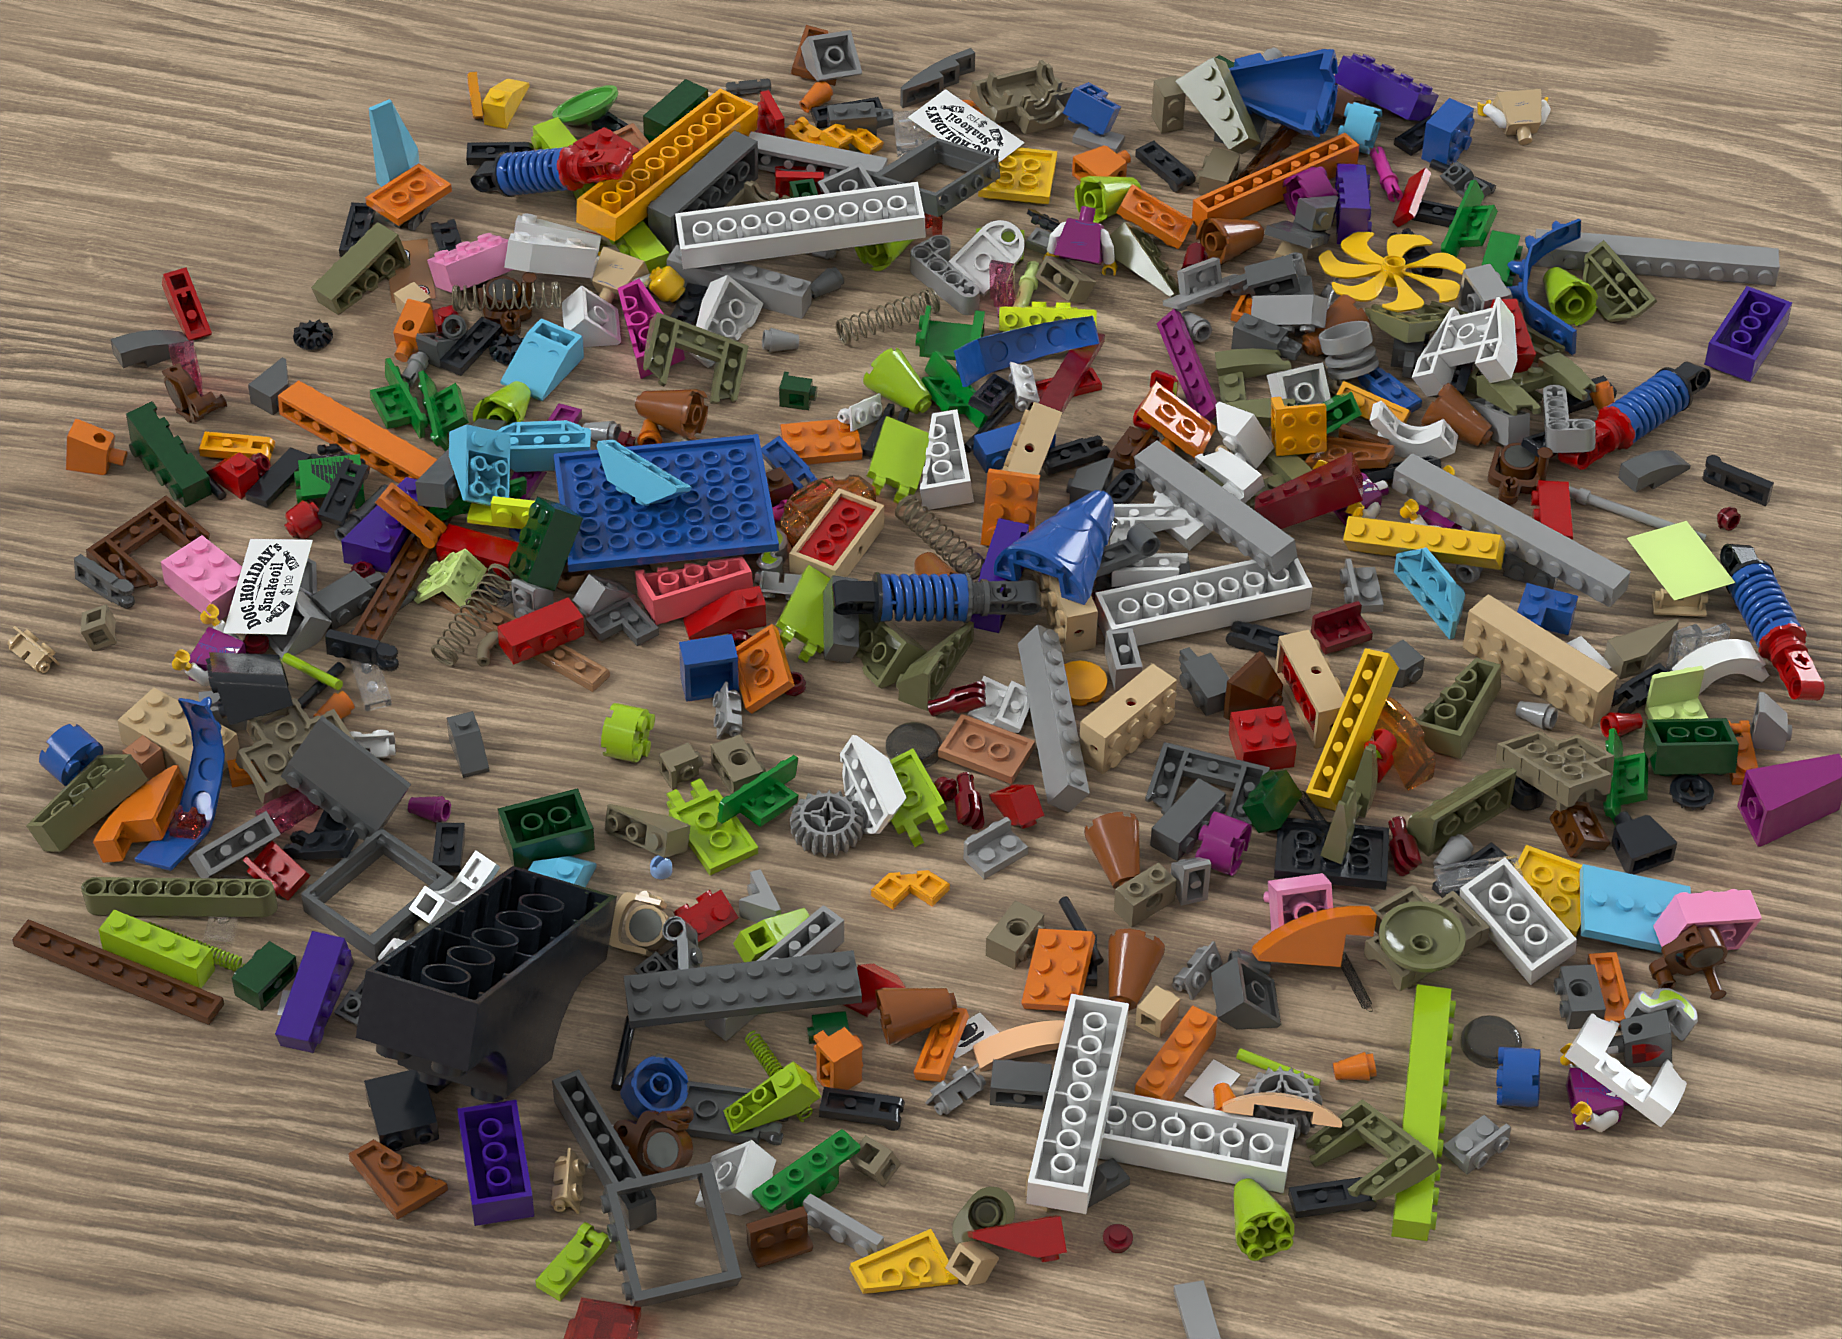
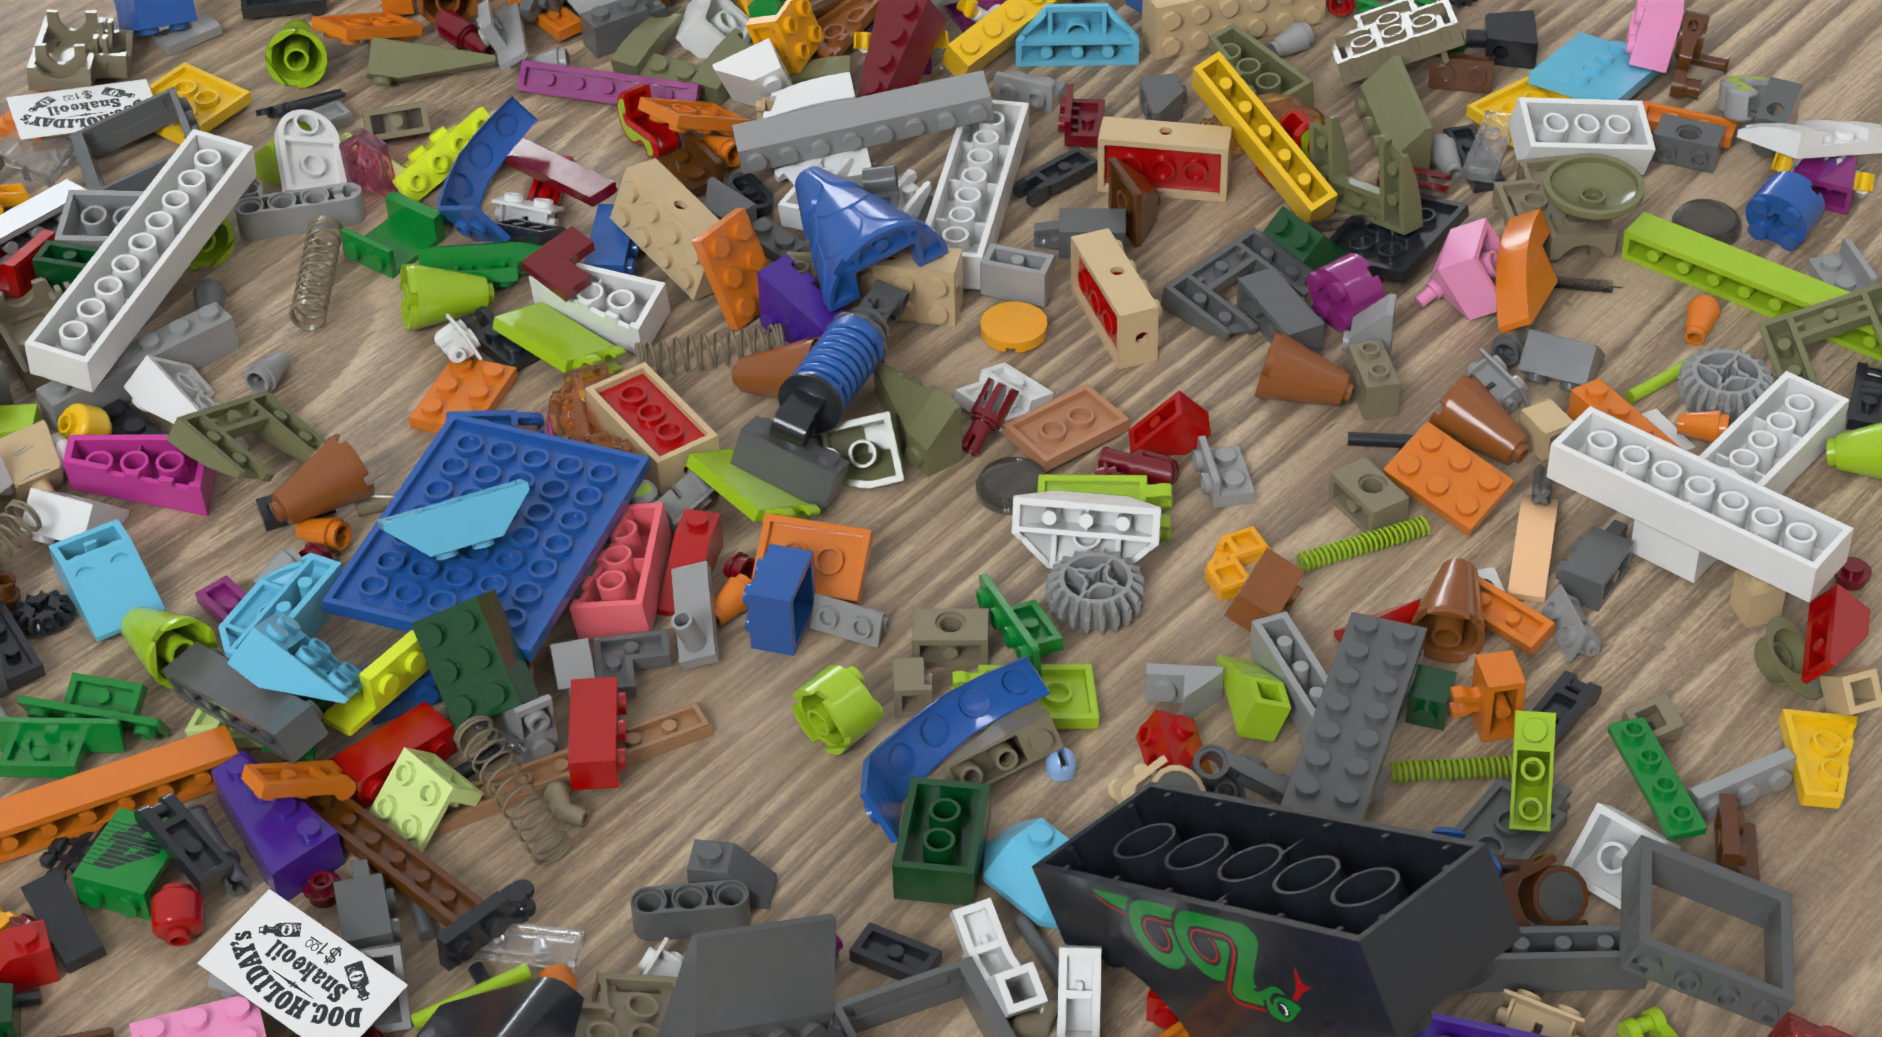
camera: 60 degrees left, 5 degrees down
(430, 738) = (689, 909): none -> dark grey beam
(609, 785) = (937, 732): none -> blue piece
(662, 645) = (694, 615): none -> light grey piece
(796, 392) = (369, 385): dark green brick -> none
(874, 910) = (1266, 590): none -> dark orange brick
(947, 416) = (555, 263): none -> dark red tile
(978, 959) = (1317, 555): none -> lime piece
(1053, 719) = (1064, 354): light grey brick -> none
(1083, 241) = (364, 80): magenta torso -> none
(1100, 162) = (241, 43): orange torso -> none
(1245, 1105) = (1741, 388): light nougat slope -> none
(1263, 737) = (1201, 220): red brick -> none

